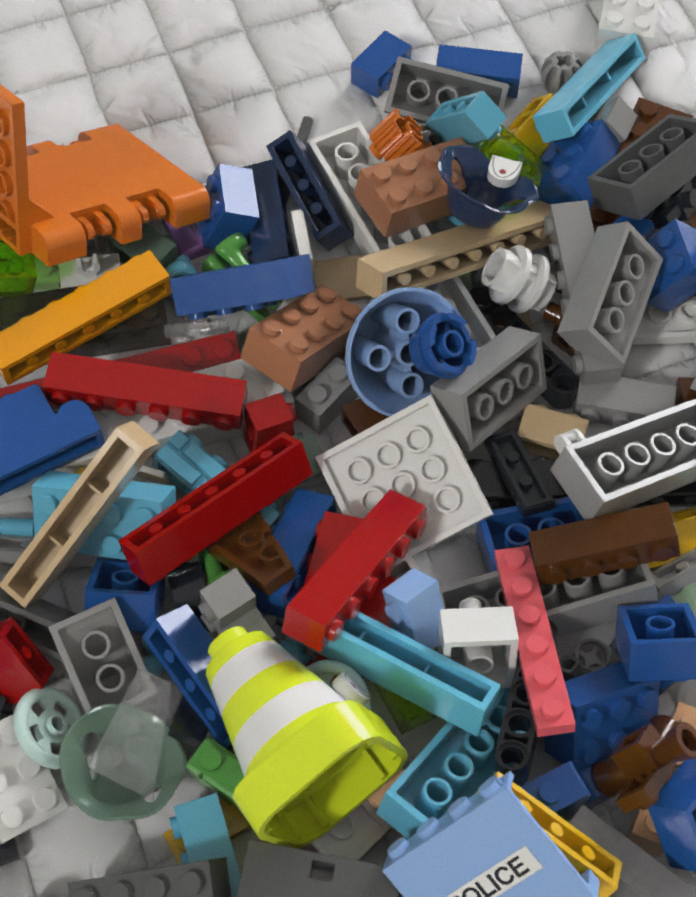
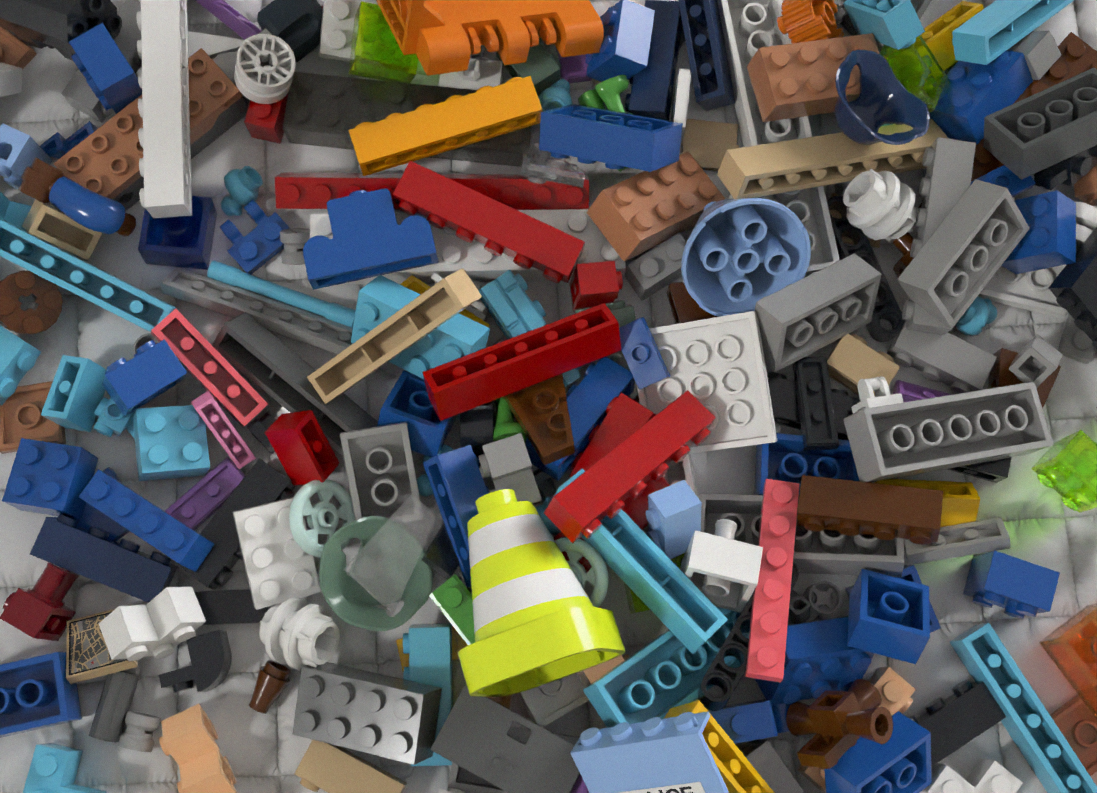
camera: 15 degrees right, 15 degrees up
(56, 852) = (299, 633): none -> white piece
(335, 472) = (642, 354): none -> blue plate
(349, 689) = (591, 578): white tile -> none
(442, 346) = (780, 268): blue cone -> none
(503, 171) = (901, 89): white tile -> none
(643, 359) = (977, 316): none -> medium azure animal

